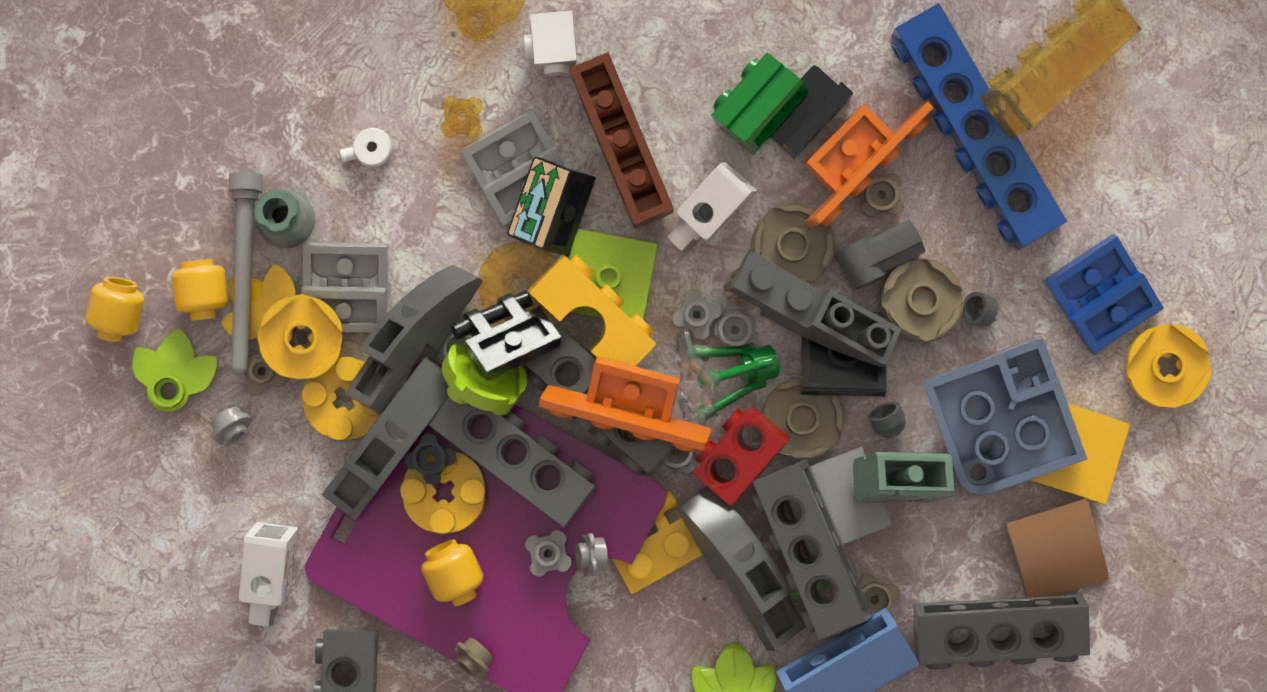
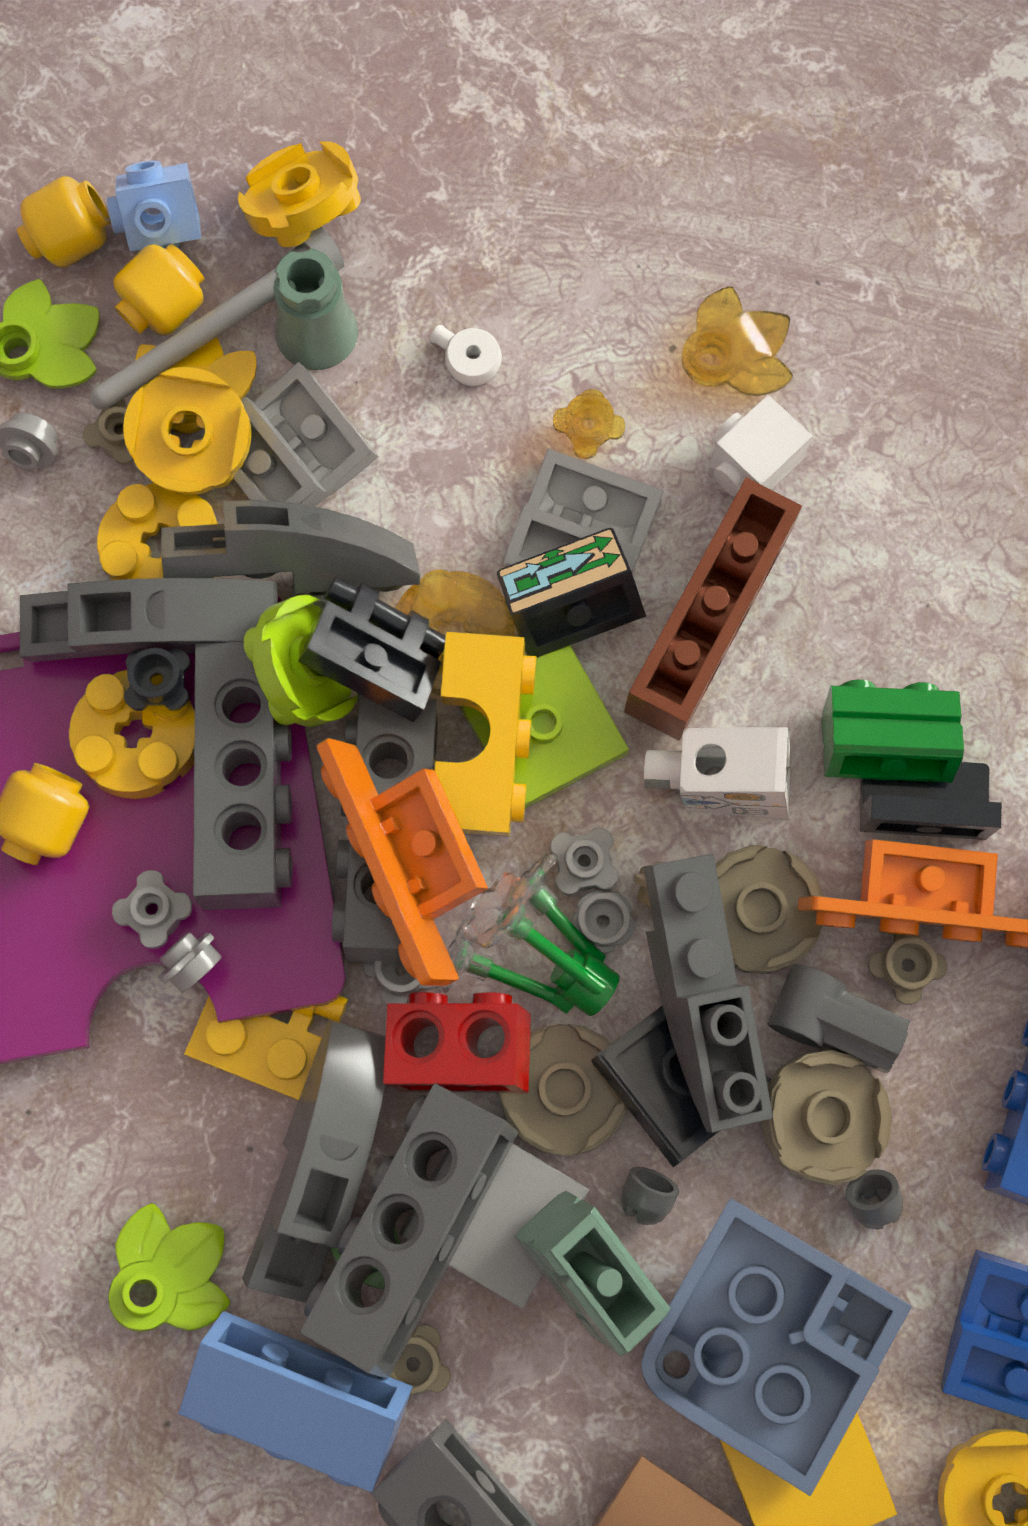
camera: 45 degrees right, 10 degrees down
(149, 252) = (154, 205): none -> light blue brick
(222, 171) = (299, 192): none -> yellow plate

